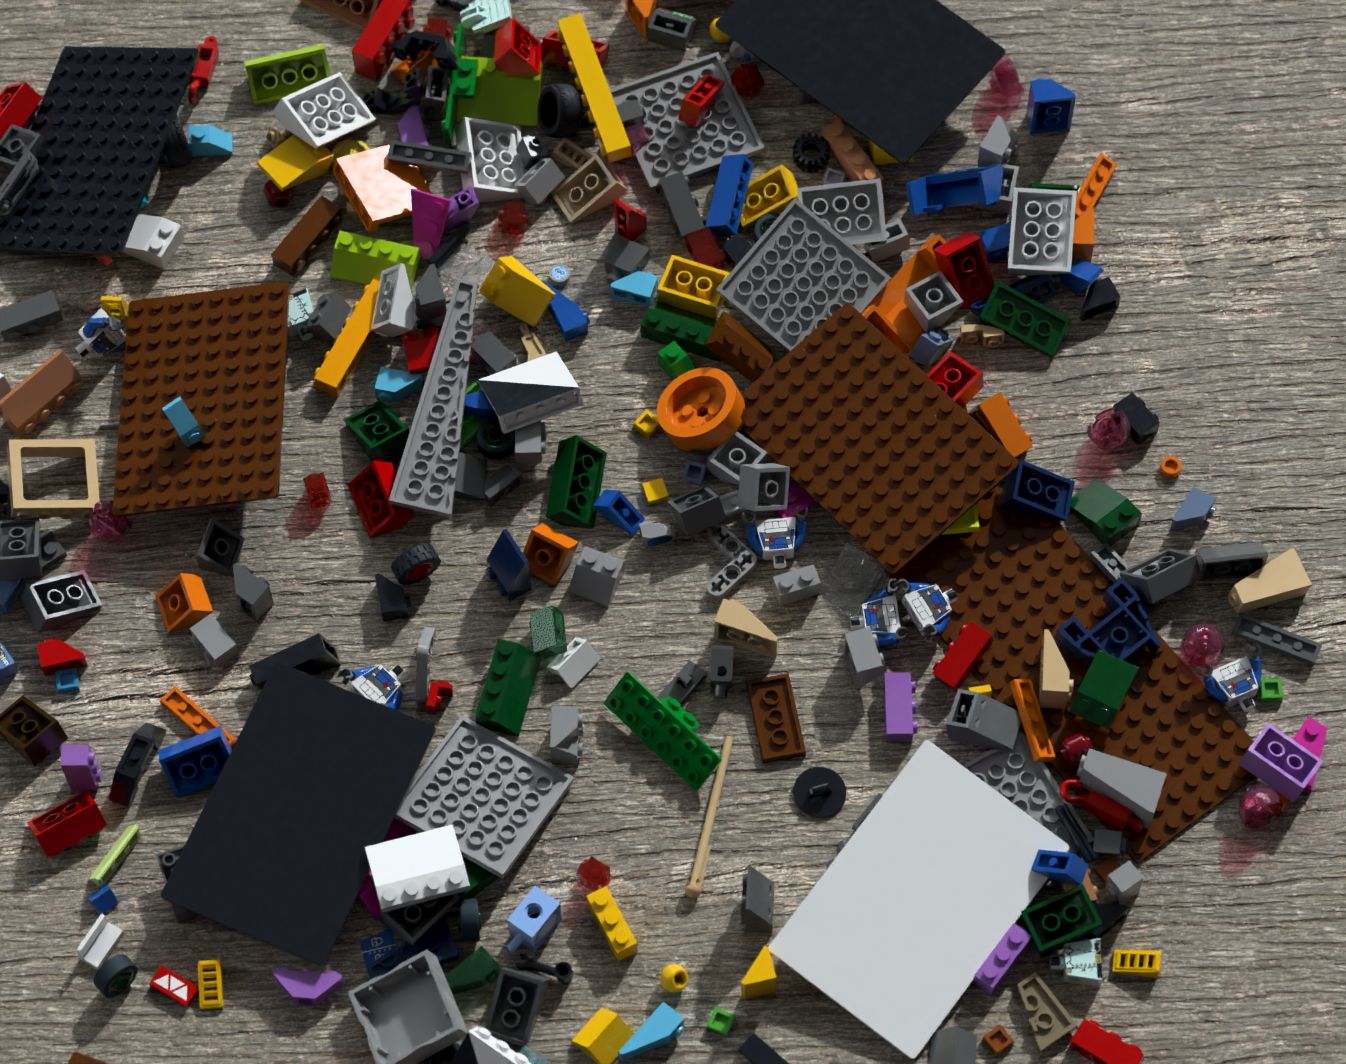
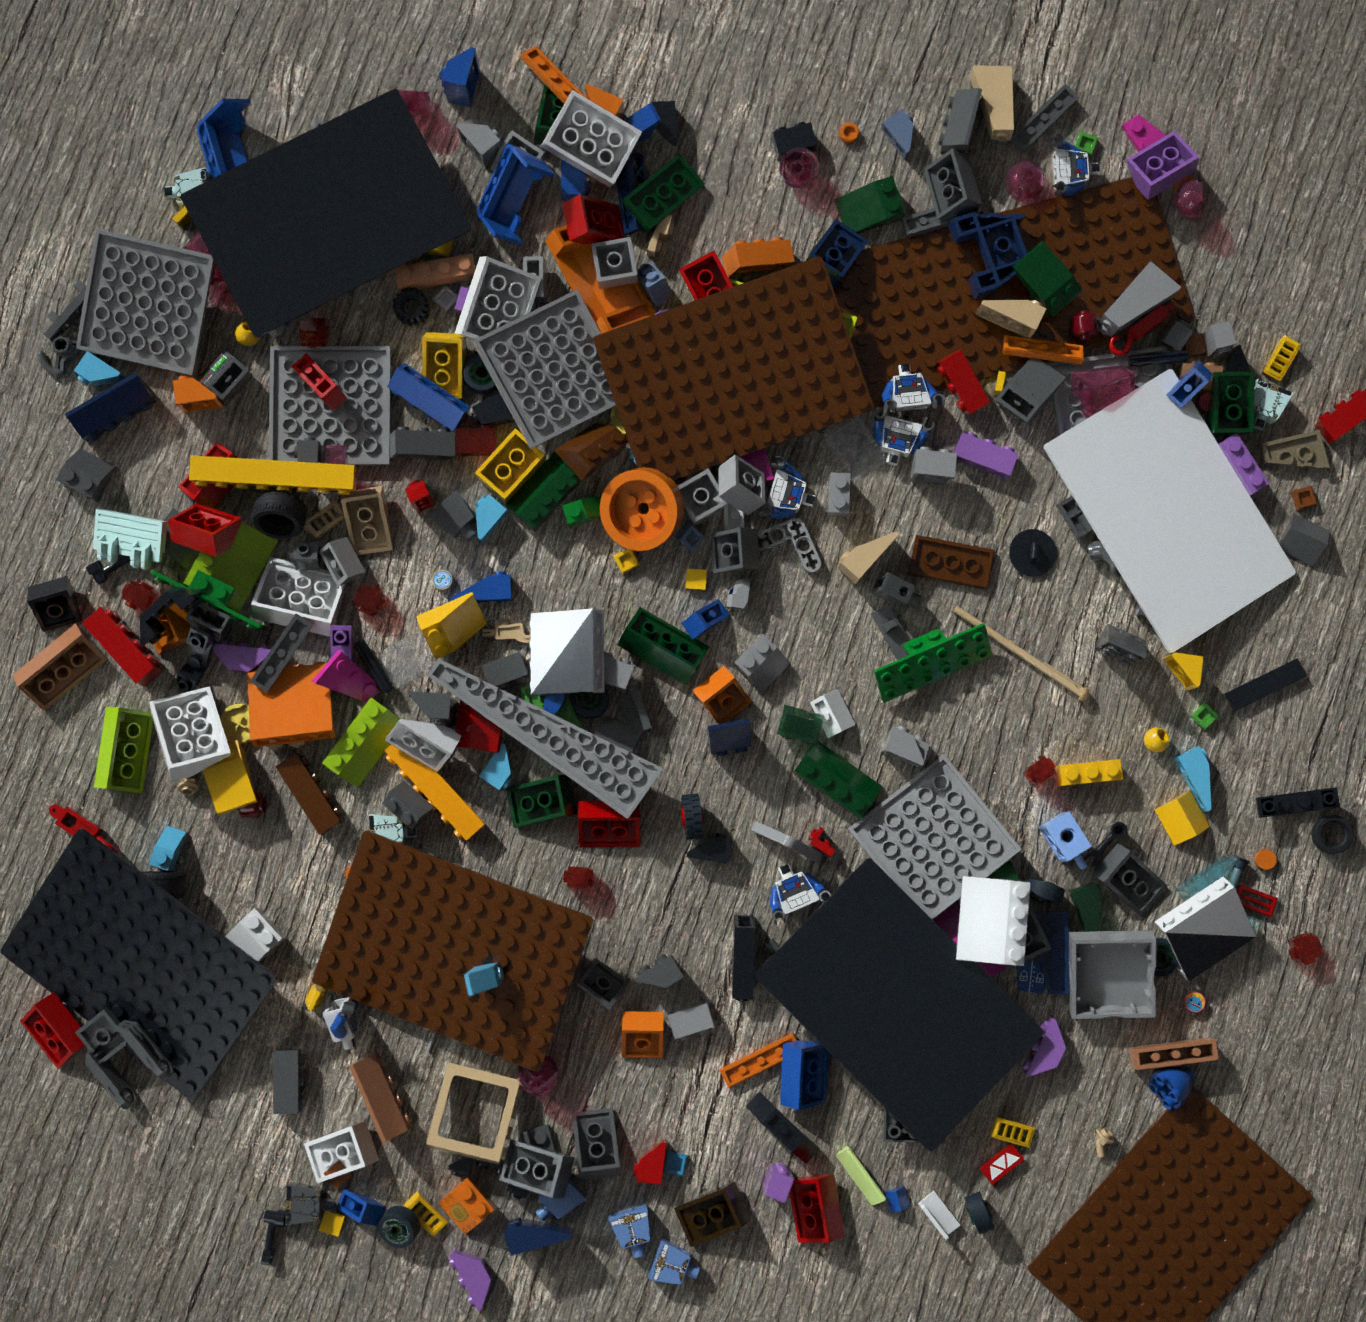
camera: 75 degrees left, 20 degrees up
(1020, 785) = (1101, 387): none -> clear pink slope

